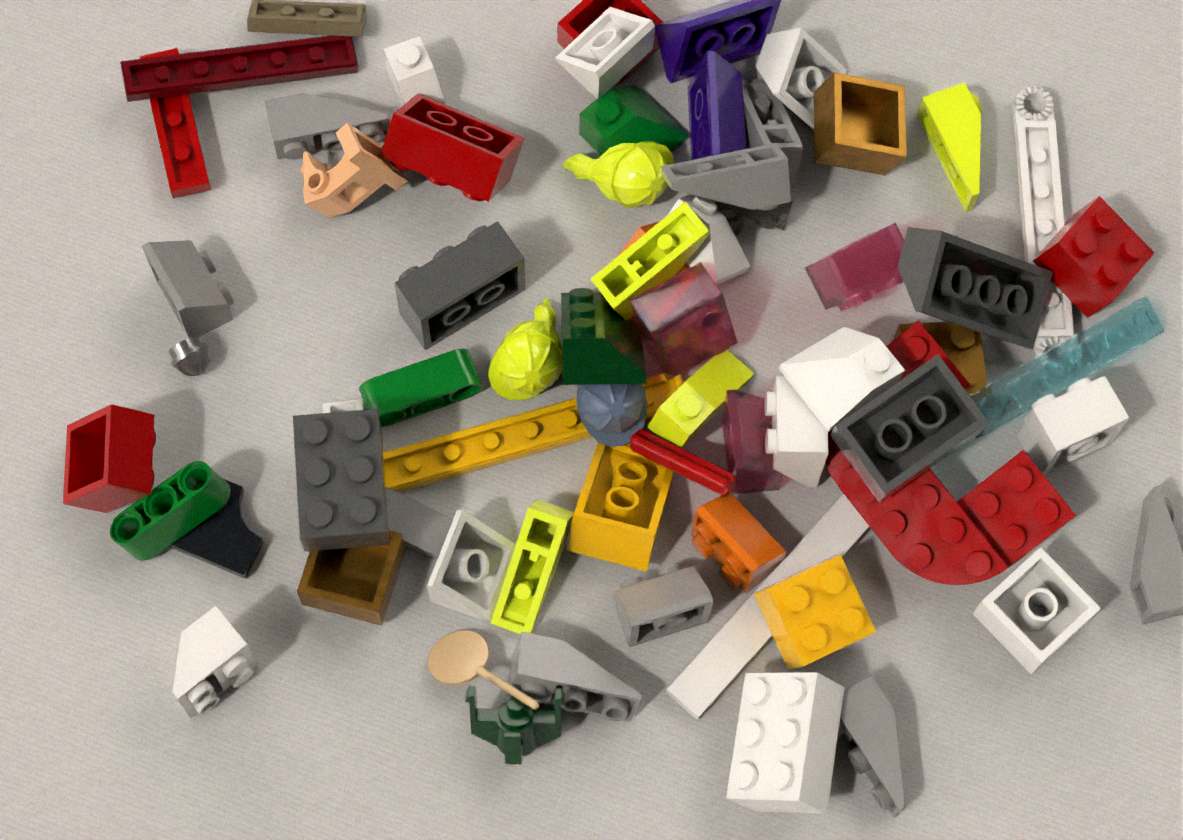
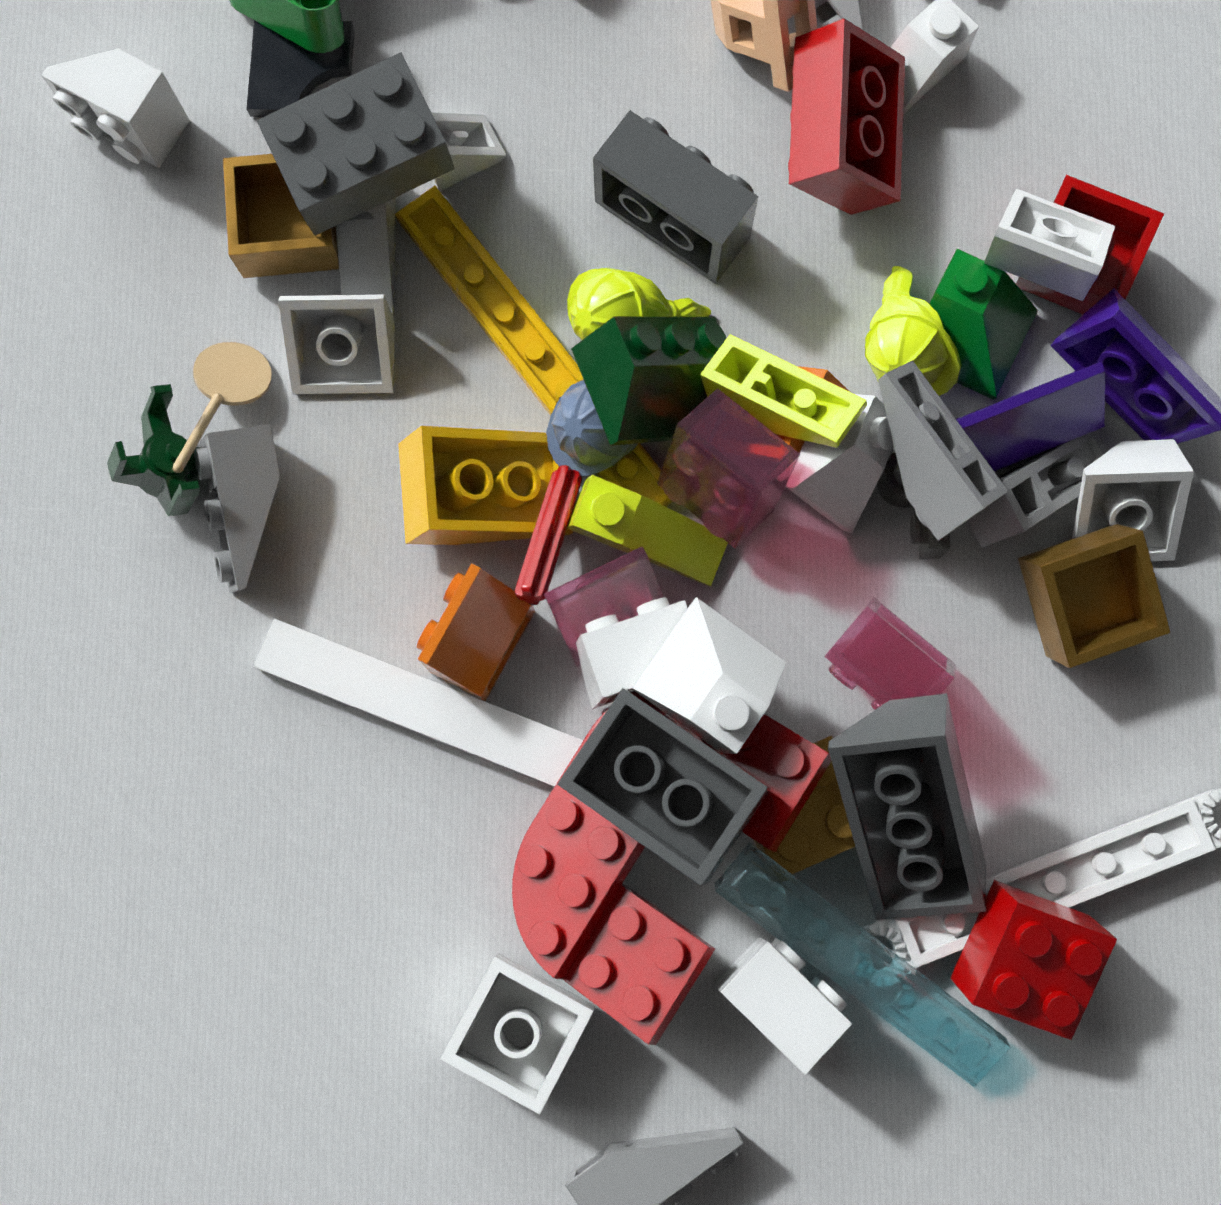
camera: 75 degrees right, 10 degrees up
(422, 386) = (539, 209): green beam -> none
(532, 566) = (367, 411): neon yellow slope -> none
(662, 604) = (366, 572): light grey slope -> none
(785, 742) = (237, 776): white brick -> none
(814, 612) = (415, 756): yellow brick -> none
(872, 736) = (304, 871): light grey slope -> none
(954, 130) = (1146, 720): neon yellow slope -> none

